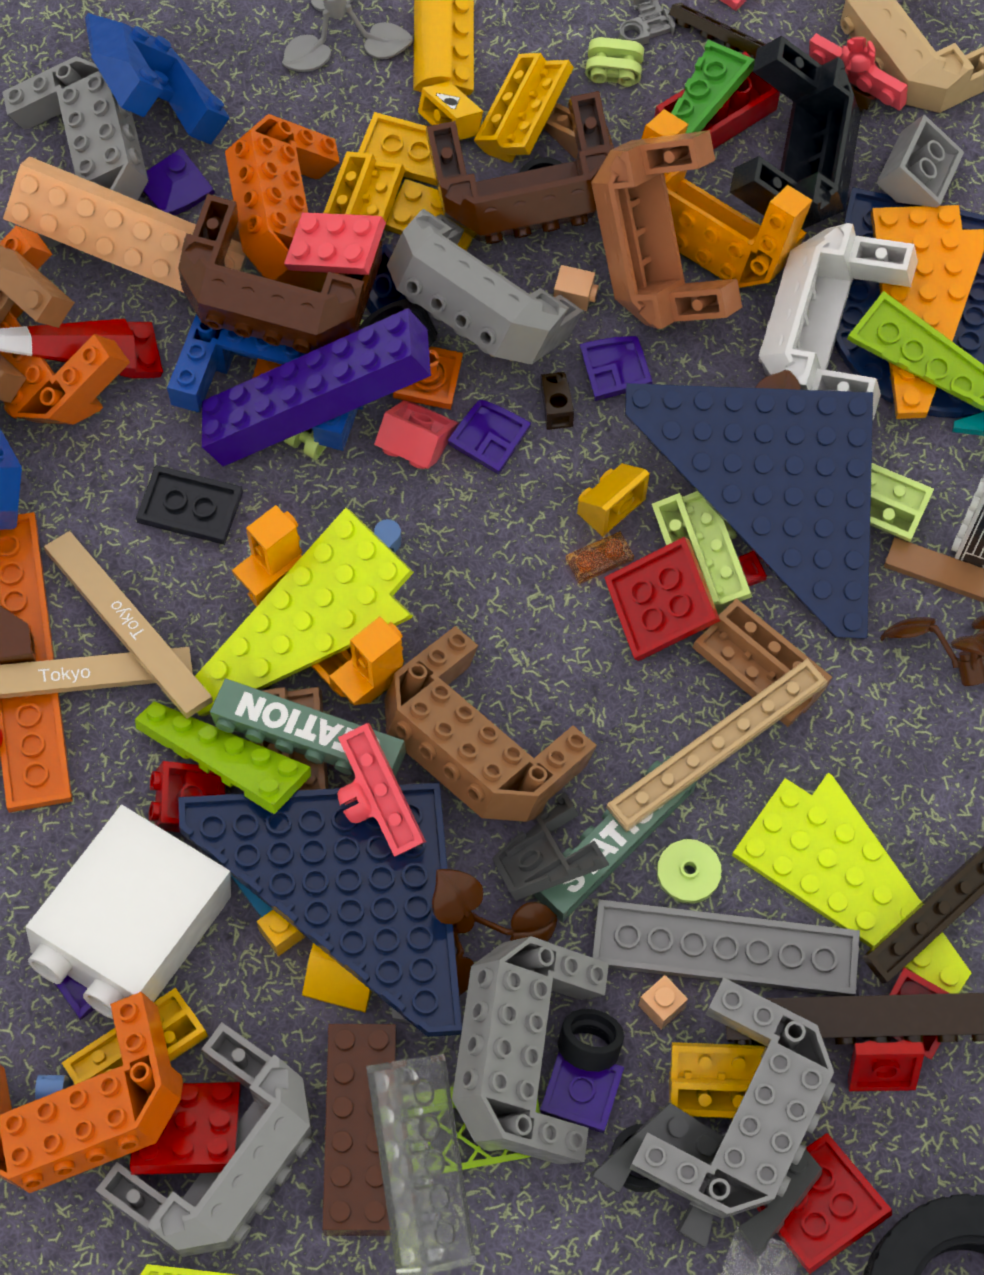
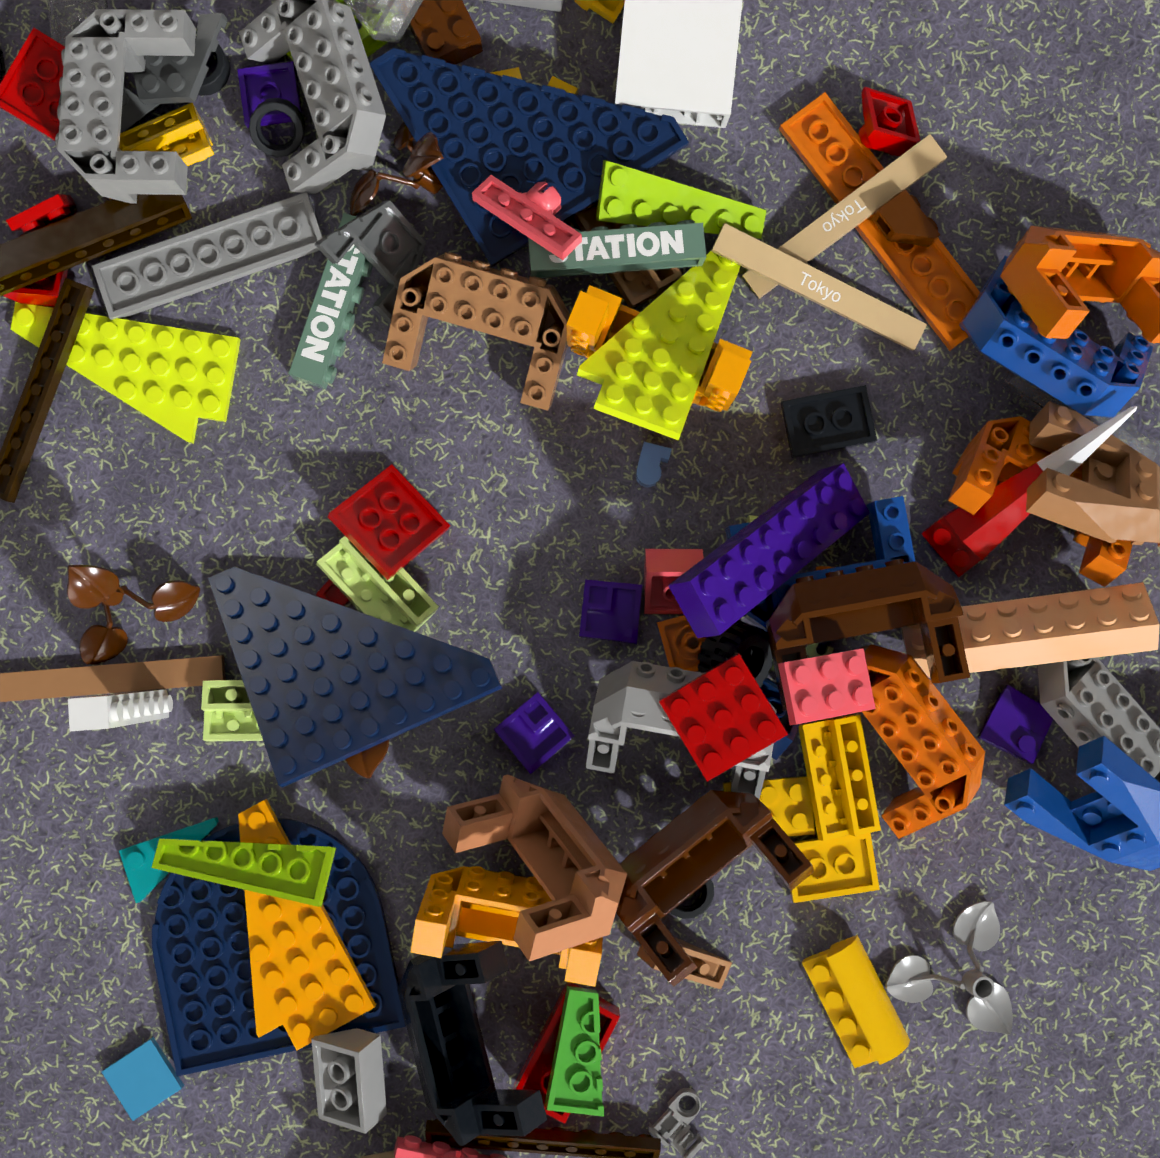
camera: 155 degrees right, 20 degrees up
(175, 781) = (694, 165): red plate -> none
(440, 257) = (723, 717): none -> red plate
(447, 103) = (809, 922): yellow brick -> none
(522, 106) = (746, 965): yellow brick -> none
(557, 401) = (570, 674): dark brown leg -> none
(576, 286) = (605, 793): light nougat brick -> none
(599, 557) = (463, 544): clear orange plate -> none
(613, 497) = (476, 599): yellow slope -> none
(614, 61) = (671, 1052): yellowish green brick -> none
(663, 1002) = (237, 186): light nougat brick -> none
(685, 886) = (277, 317): yellowish green plate -> none
(716, 745) = (282, 409): tan tile -> none
(753, 653) = (280, 507): medium nougat brick -> none
(814, 299) = (381, 857): white wedge -> none

